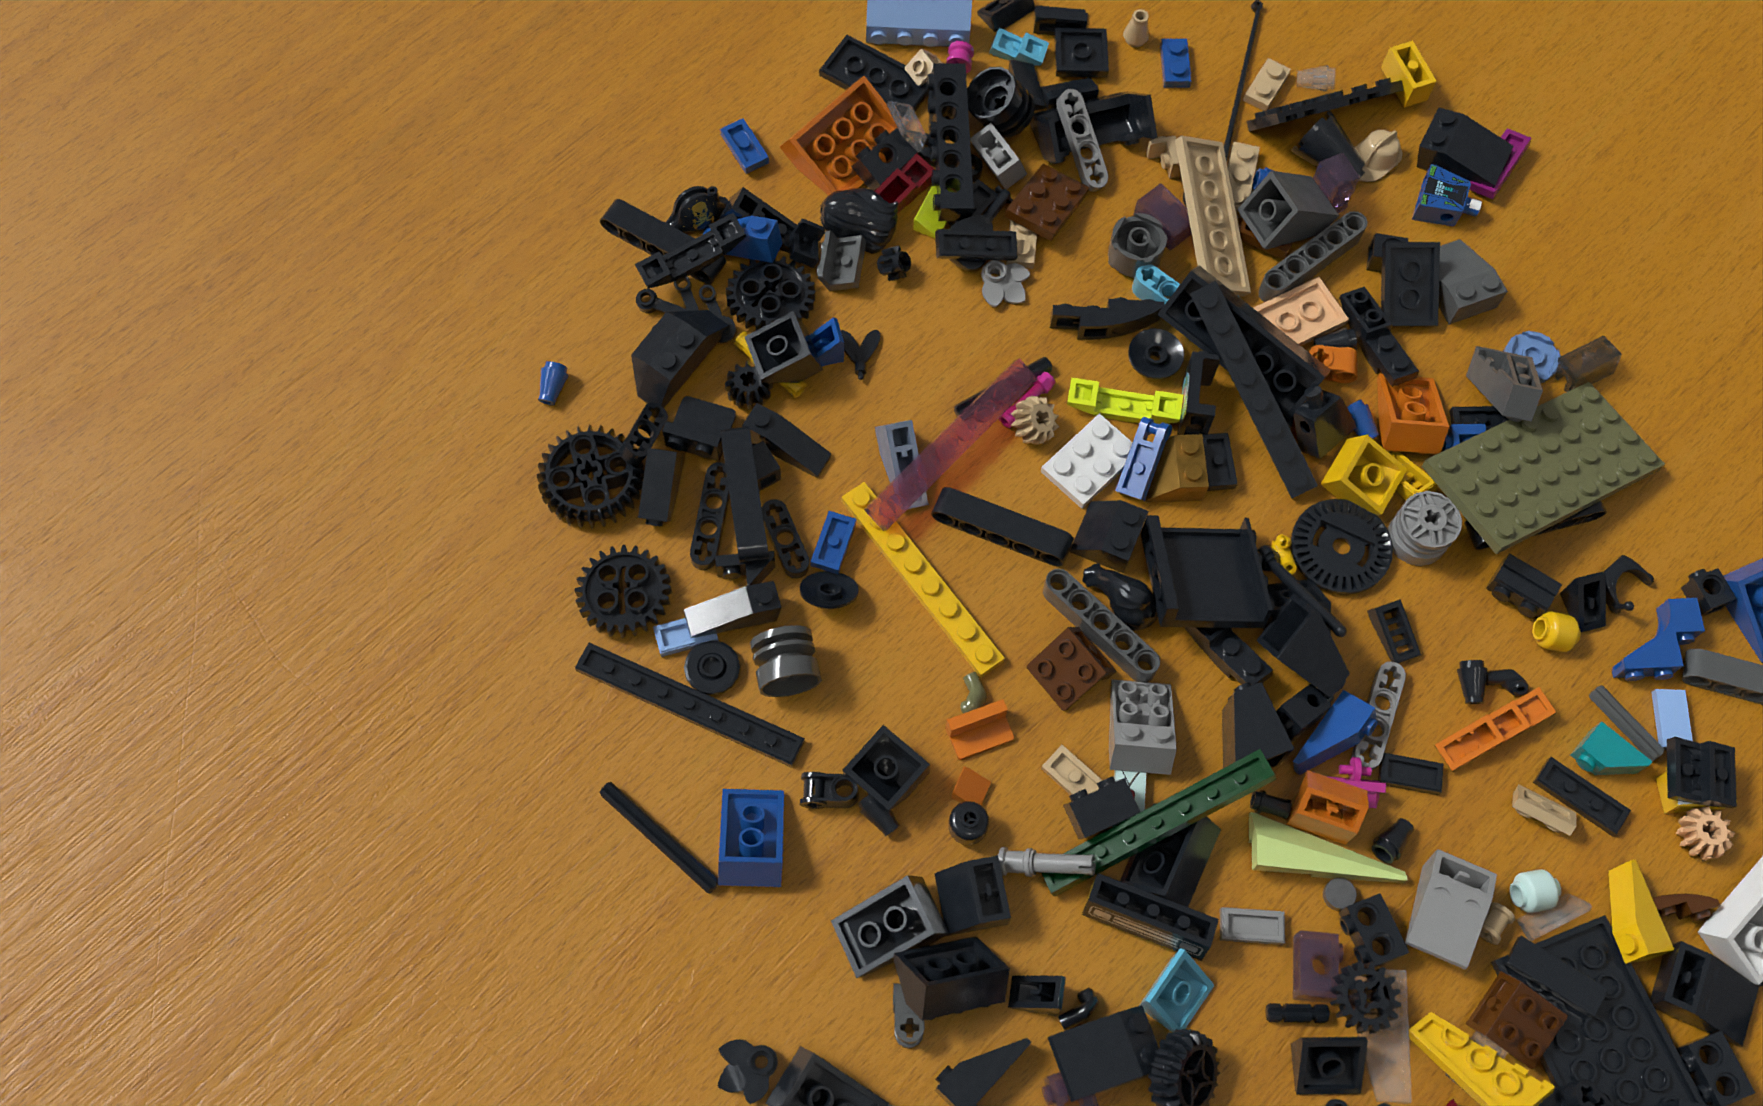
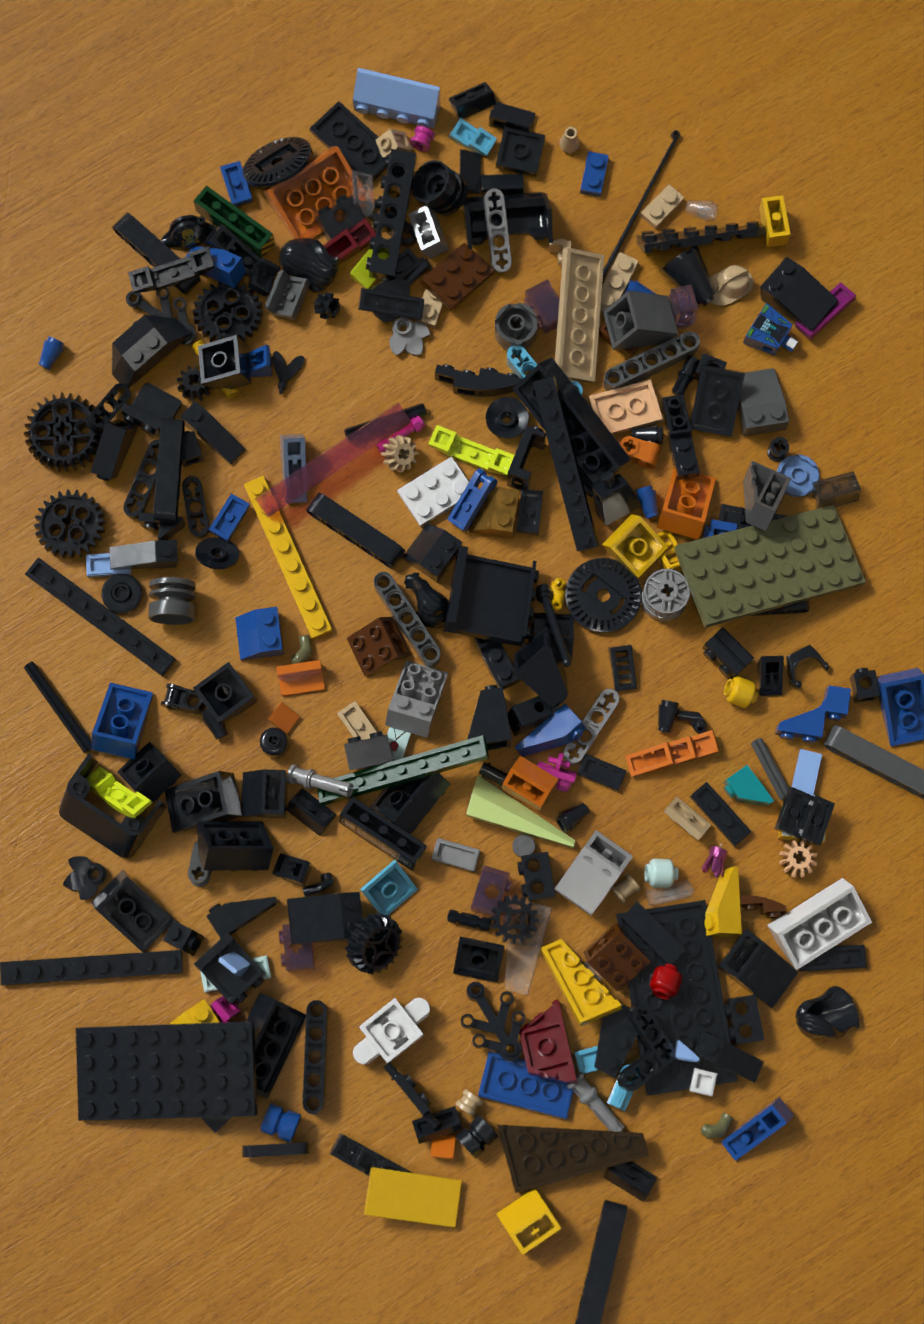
camera: 15 degrees right, 10 degrees up
(732, 174) = (221, 211): none -> dark green brick
(750, 988) = (119, 838): none -> black windscreen
(771, 941) = (116, 794): none -> neon yellow slope
(806, 902) = (149, 773): none -> black slope
(808, 101) = (283, 170): none -> black piece
(911, 683) = (259, 634): none -> blue slope
(1040, 909) = (310, 811): none -> black slope
(1359, 264) = (685, 376): none -> black axle
(1505, 328) = (771, 452): none -> black bush
(1597, 1040) = (665, 981): none -> red head
(1601, 851) = (716, 856): none -> flat silver piece

